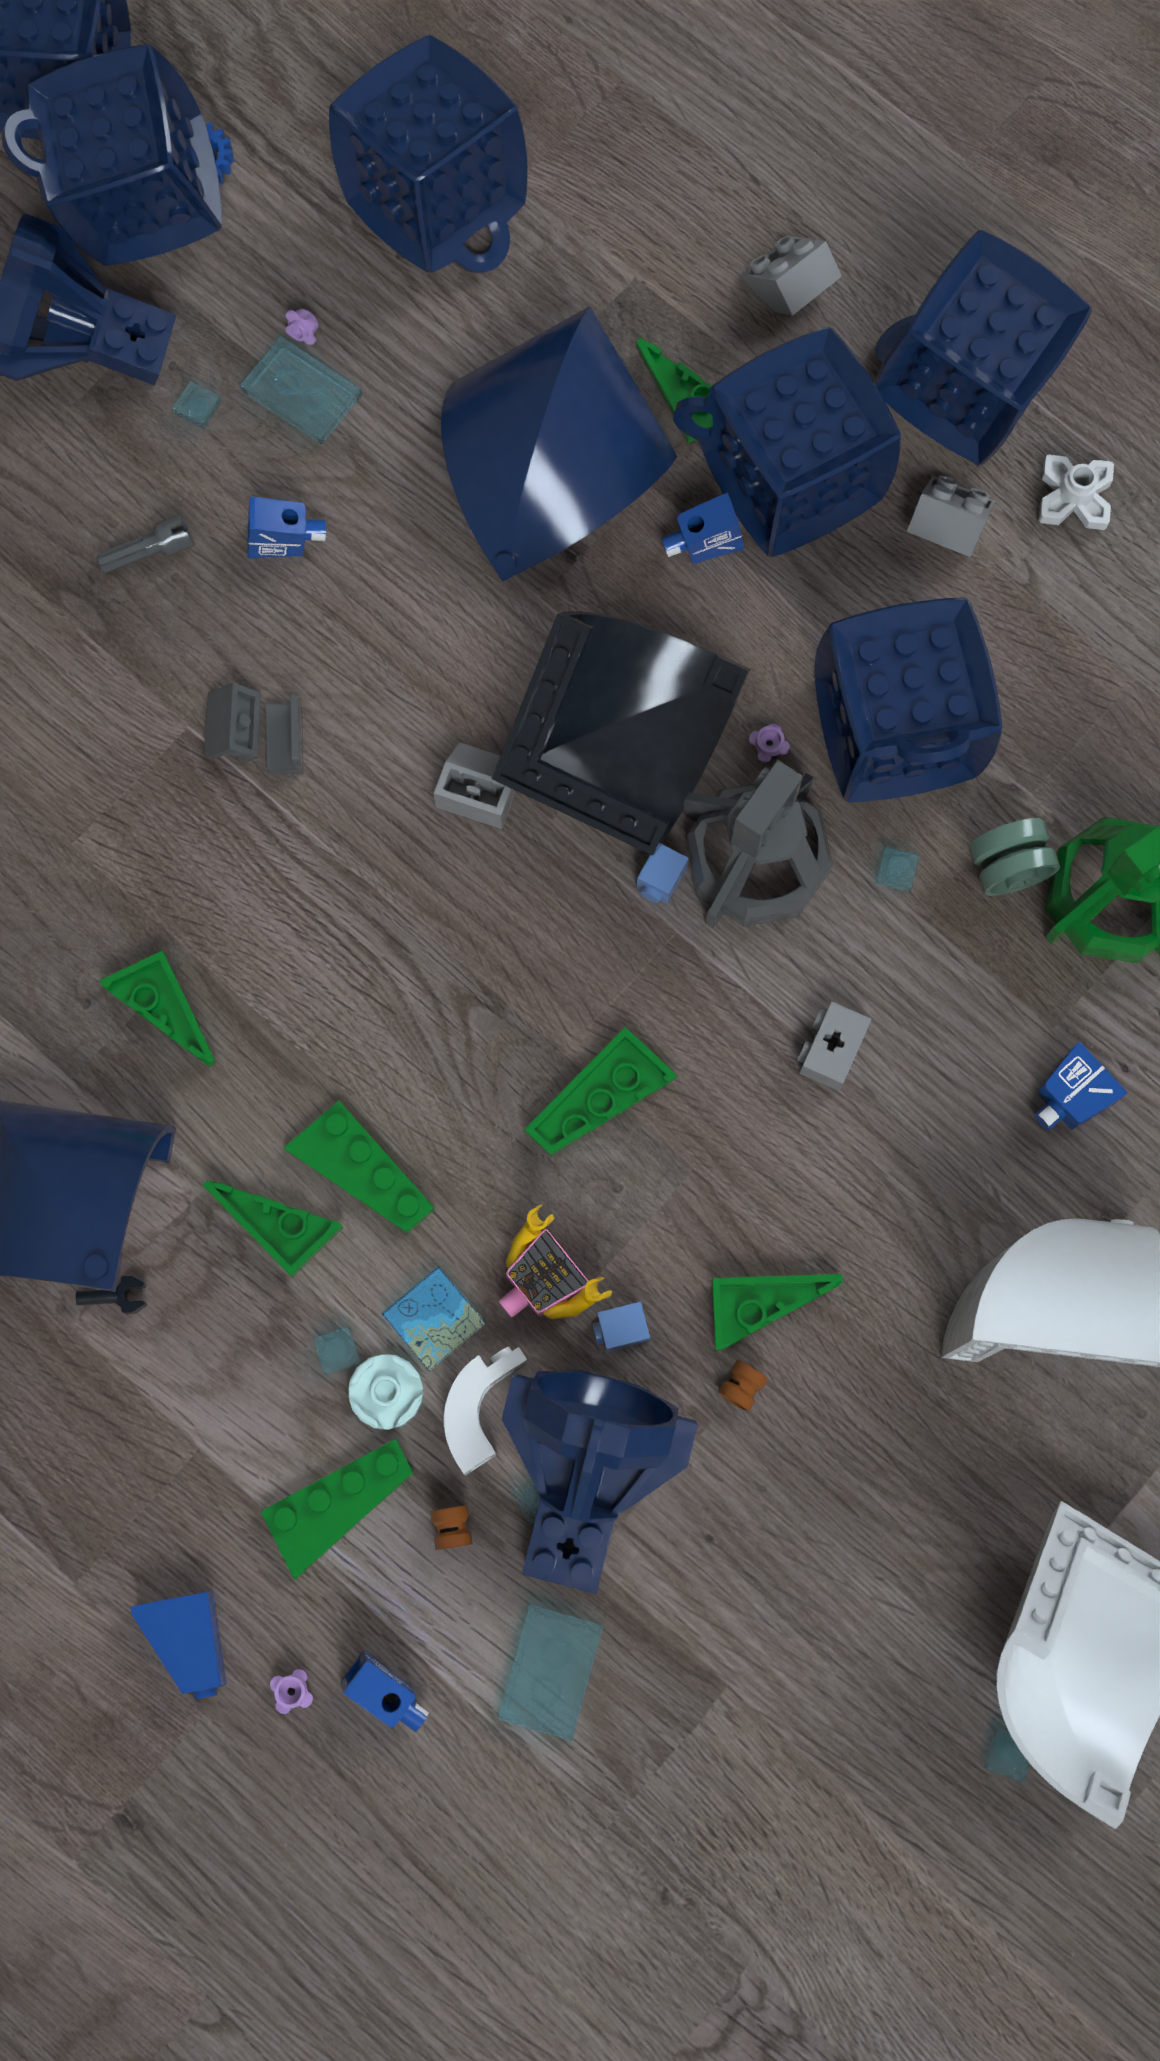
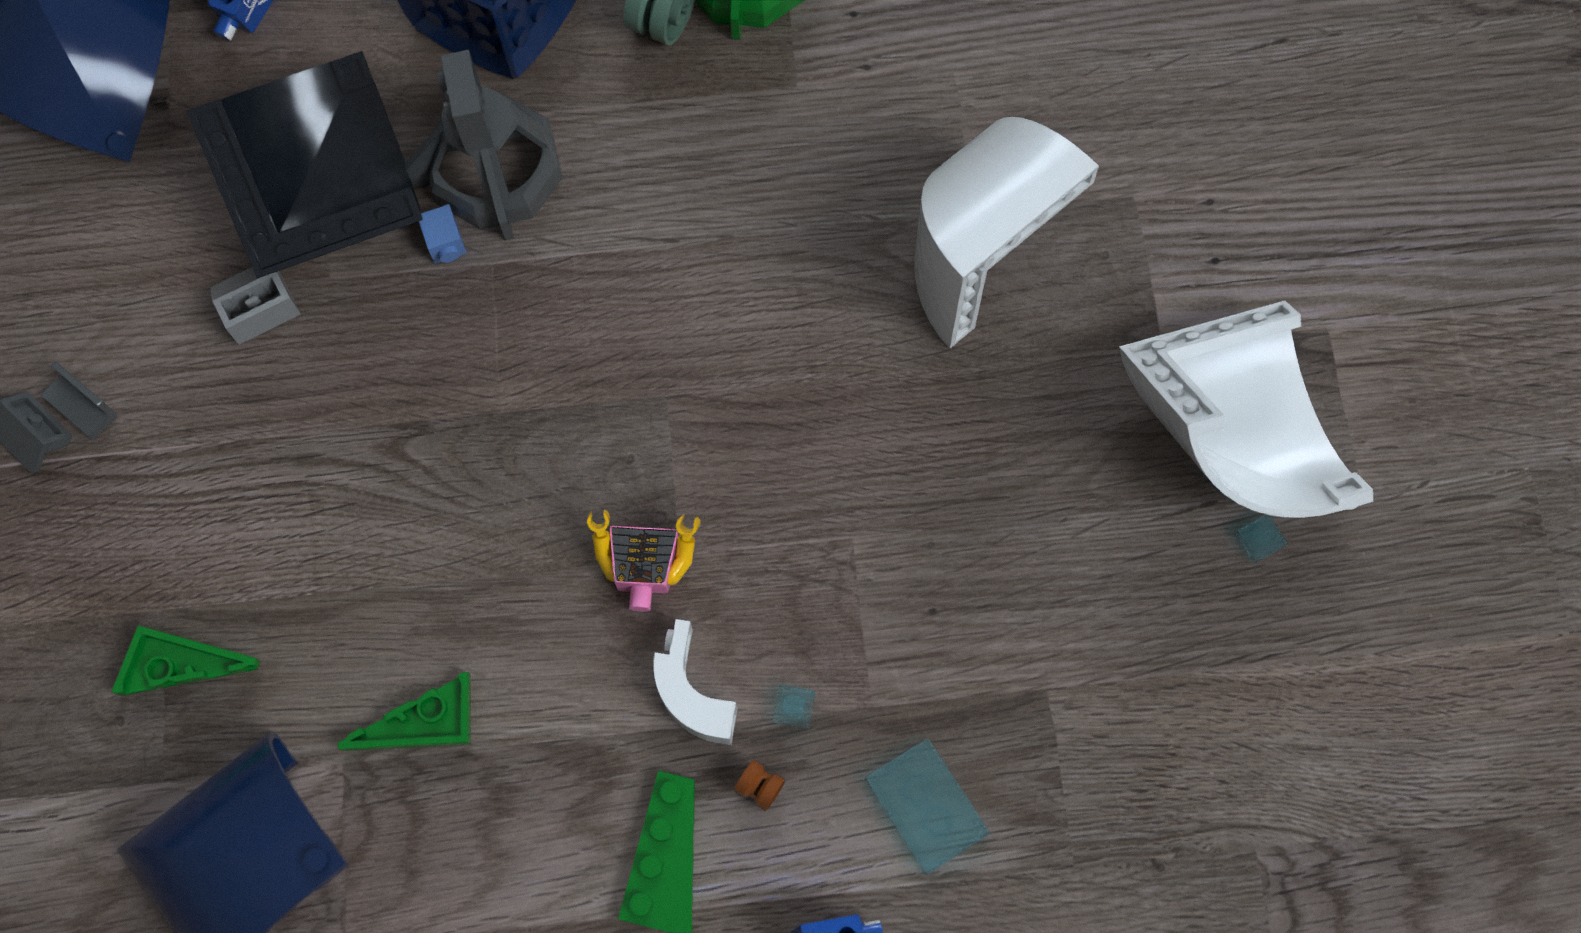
camera: 45 degrees left, 5 degrees down
(94, 1297) = (355, 890): black bar -> none
(336, 1350) = (554, 758): clear light blue plate -> none
(353, 1161) = (439, 623): green wing -> none
(385, 1391) = (617, 749): light aqua tile -> none
(433, 1318) = (598, 667): clear light blue tile -> none
(591, 1455) = (819, 658): dark blue plate -> none
(604, 1089) = (552, 402): green wing -> none
(621, 1327) = (729, 538): medium blue brick -> none
(742, 1386) = (847, 492): dark orange wheel -> none
(752, 1303) = (797, 435): green wing -> none
(773, 733) = (419, 84): lavender plate -> none
(828, 1066) = (671, 210): light grey brick -> none
(897, 869) = (594, 87): clear light blue plate -> none
(1077, 1090) = (853, 103): blue torso -> none

